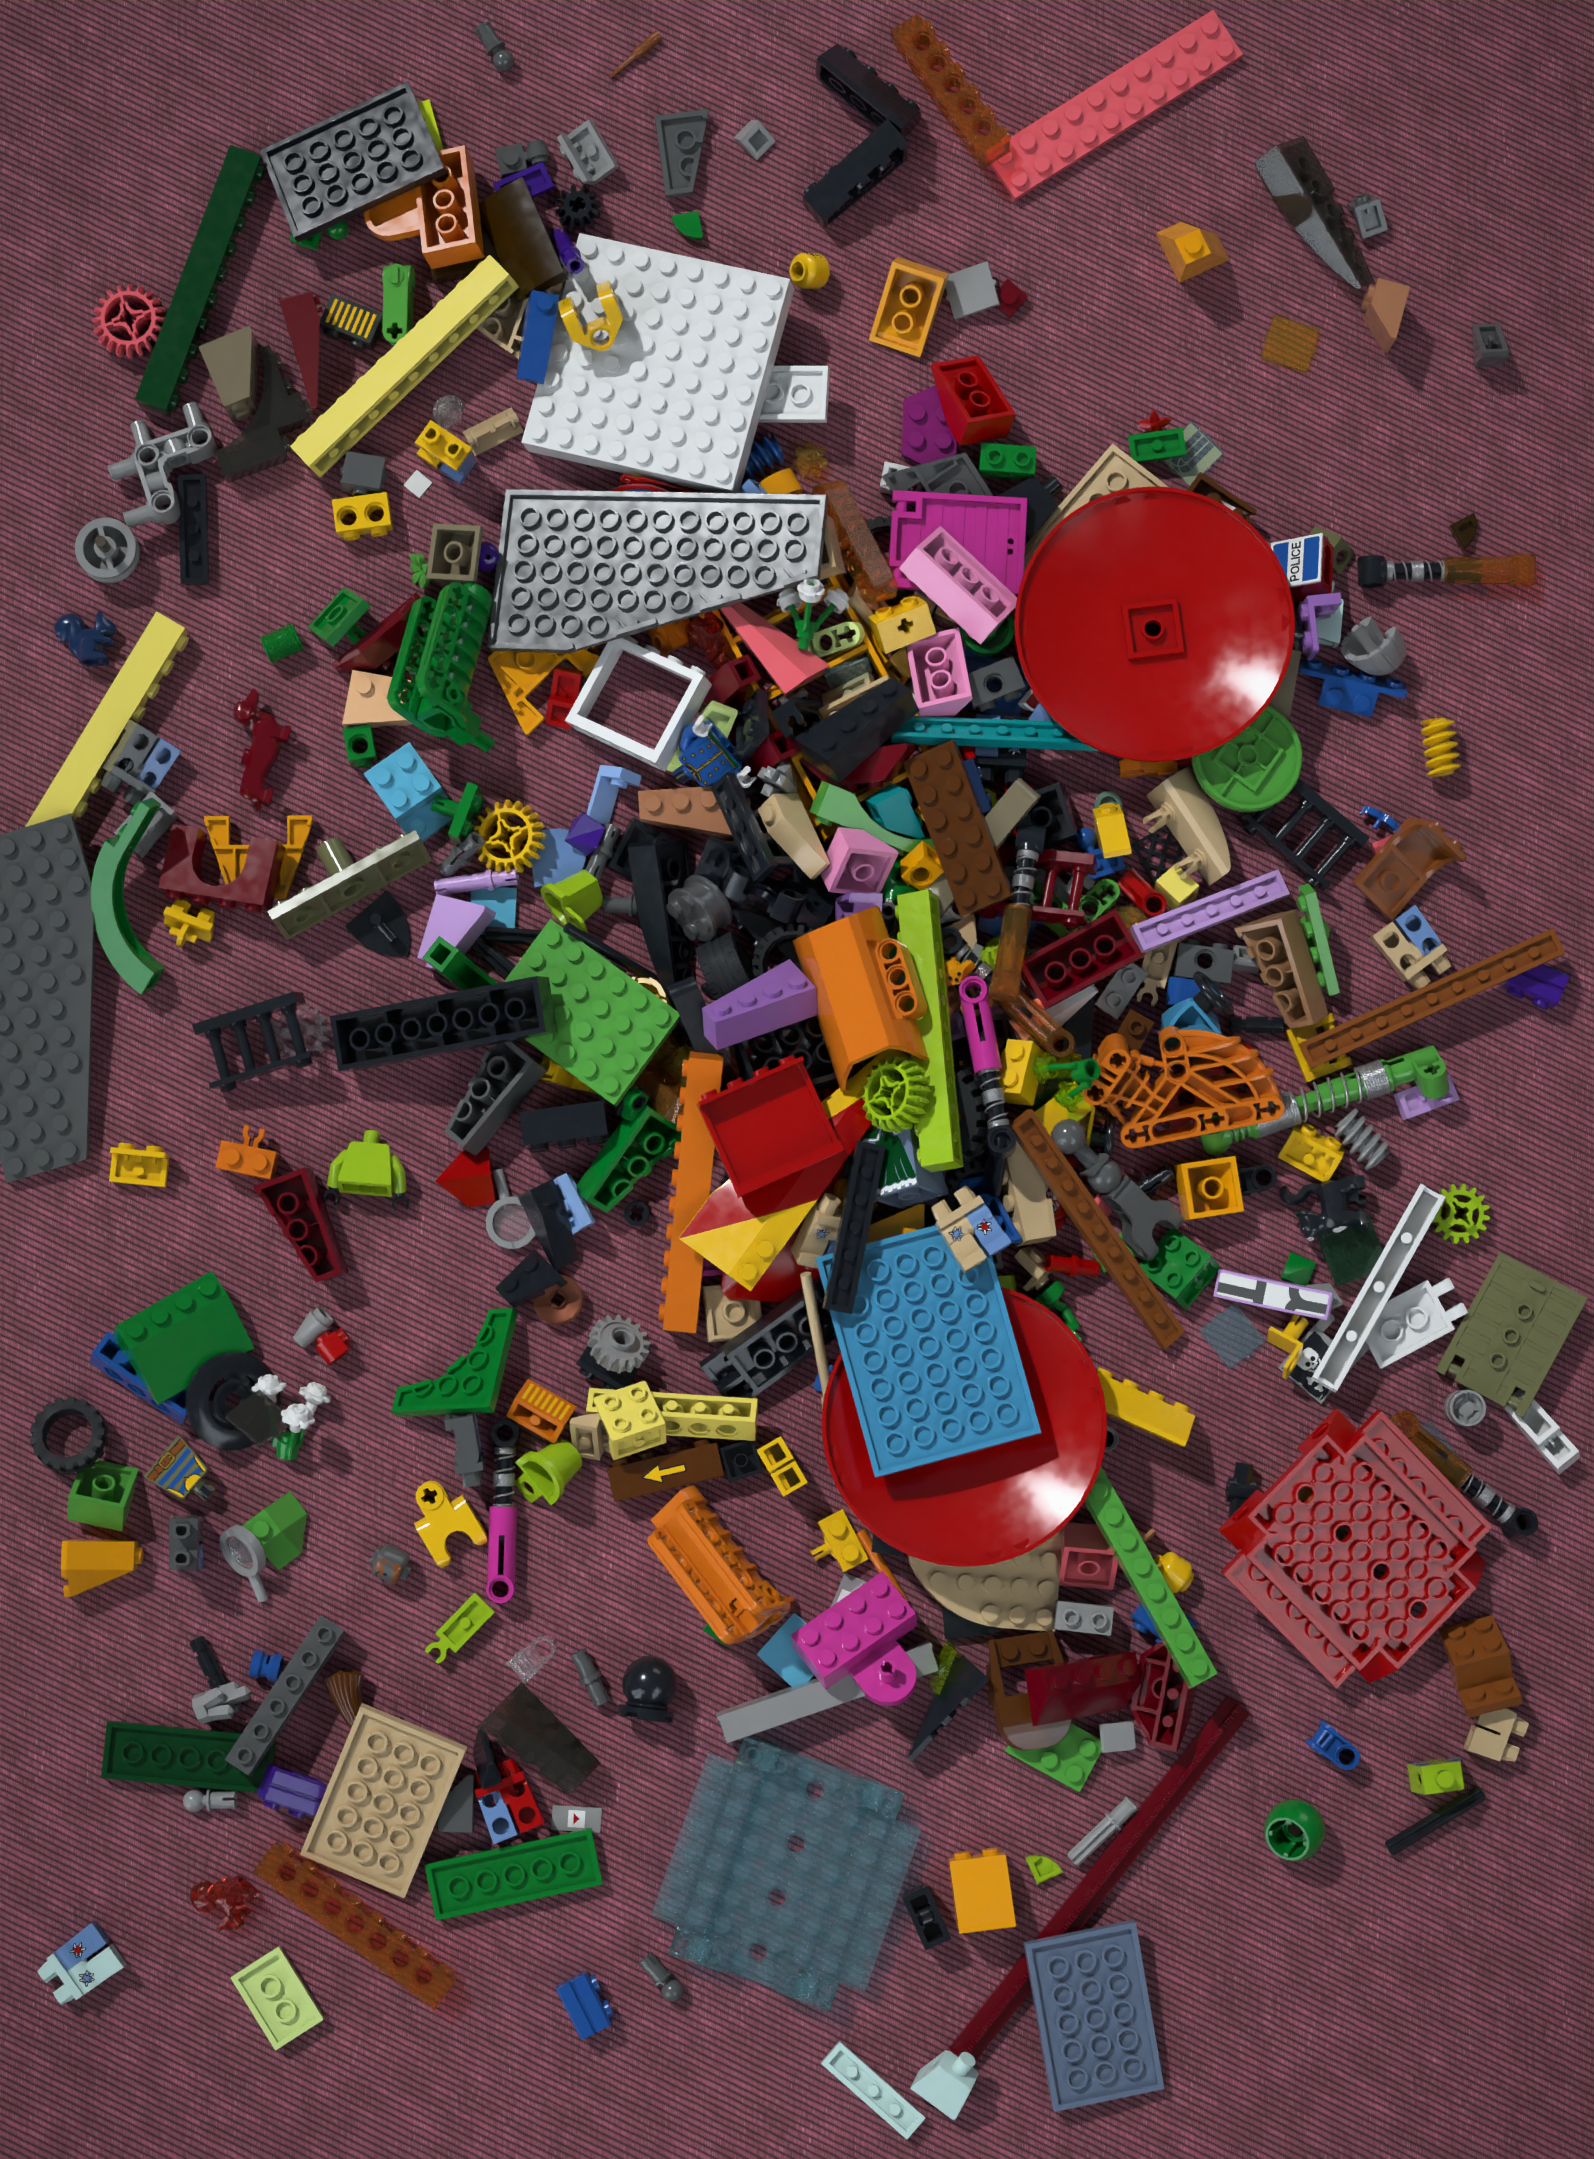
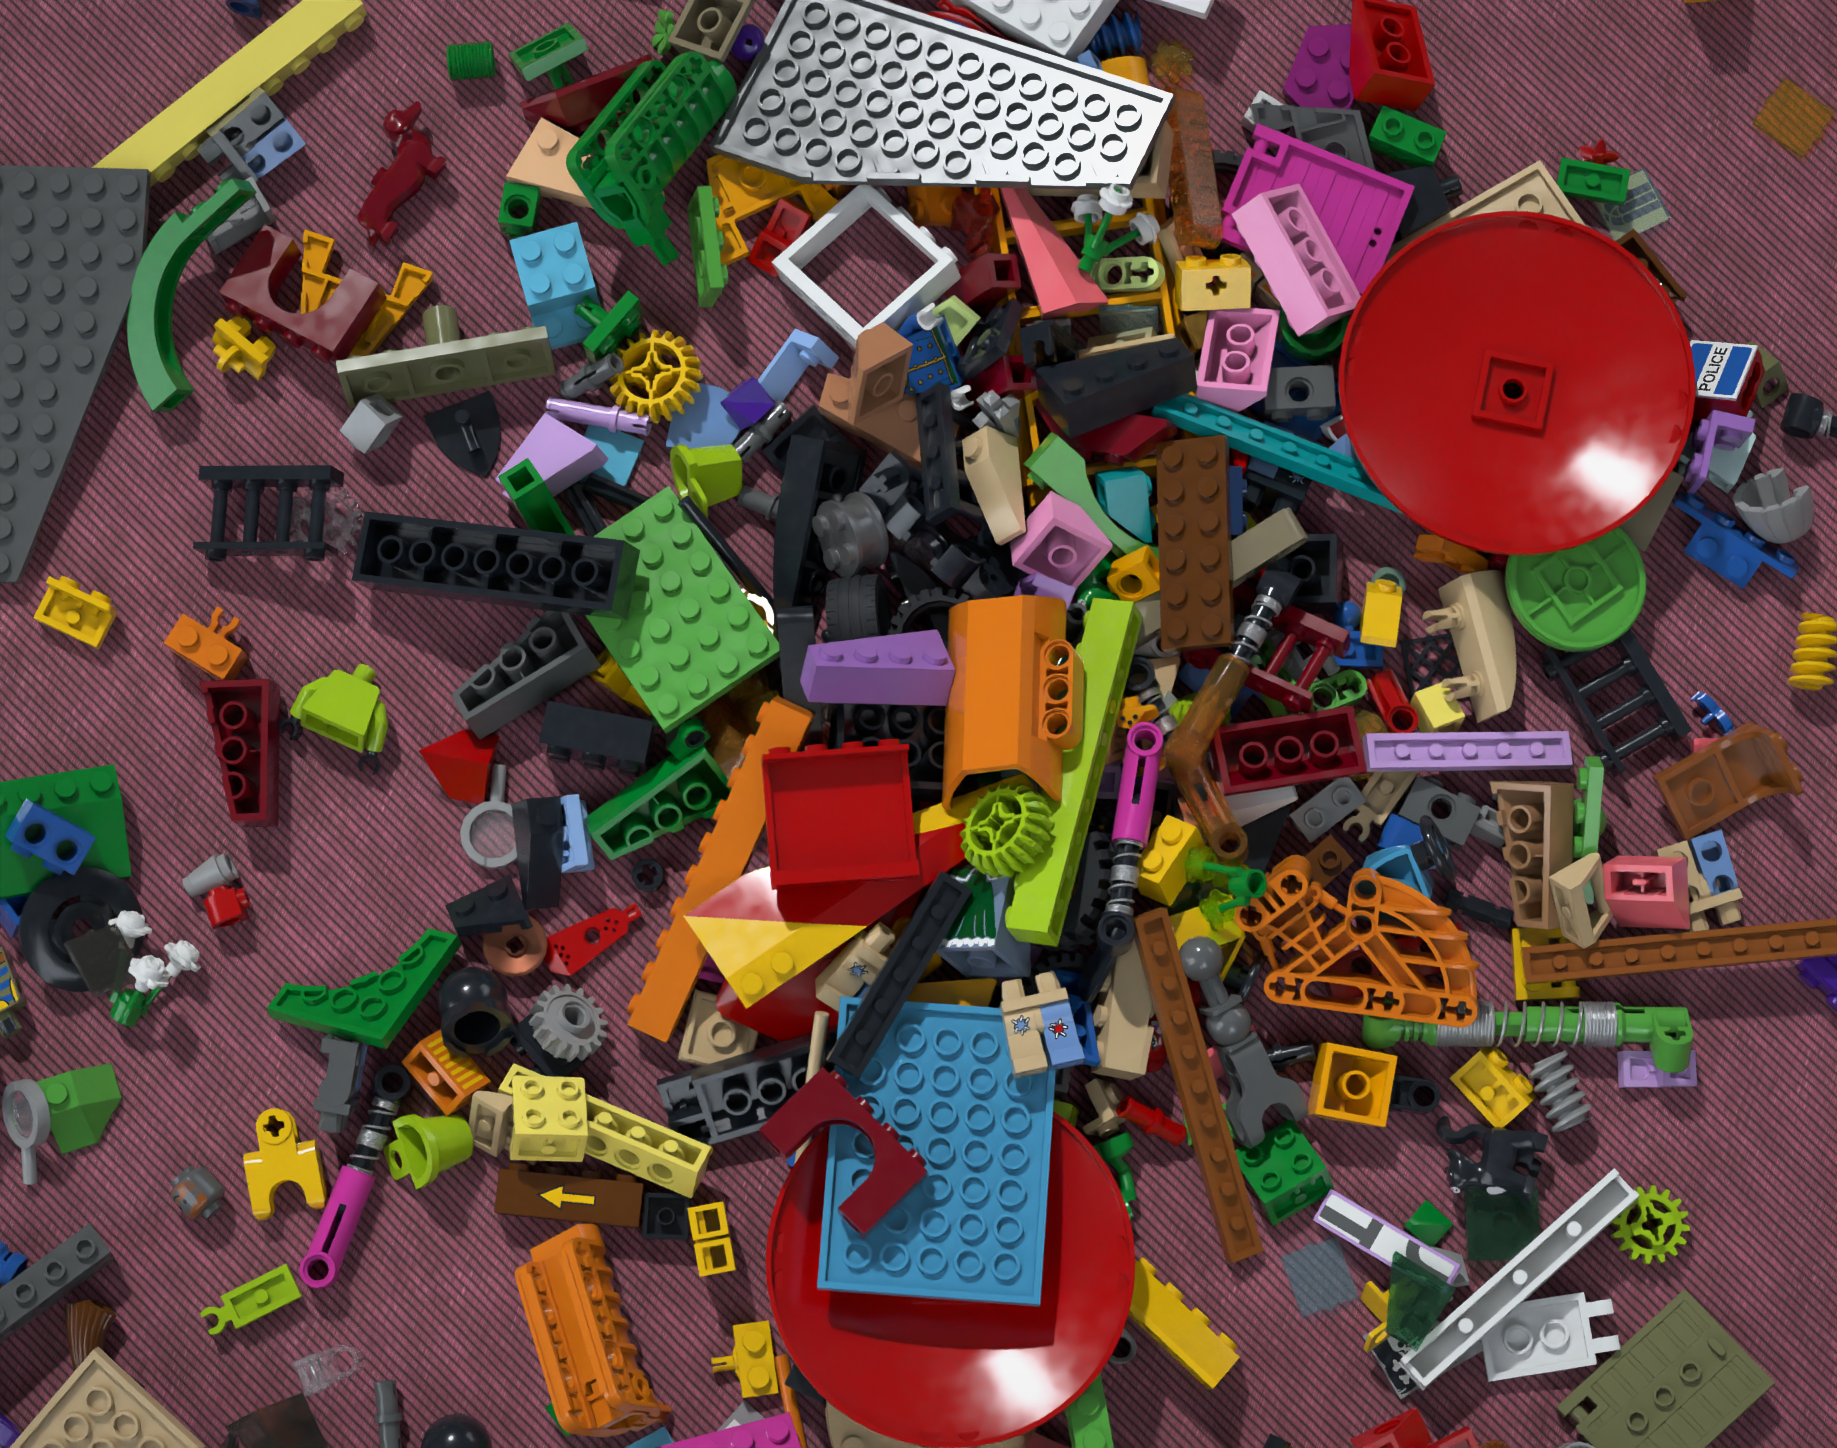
camera: 25 degrees right, 5 degrees down
(188, 1339) = (53, 831): none -> blue brick
(308, 947) = (371, 423): none -> light grey brick
(512, 725) = (706, 246): none -> bright green plate
(547, 1361) = (474, 1013): none -> black tile
(602, 1283) = (577, 946): none -> red piece
(676, 780) = (877, 372): none -> nougat slope
(835, 1339) = (828, 1103): none -> dark red arch
(1308, 1331) = (1414, 1301): none -> clear green wing
(1319, 991) = (1570, 901): none -> tan tile
(1377, 969) = (1648, 891): none -> coral slope

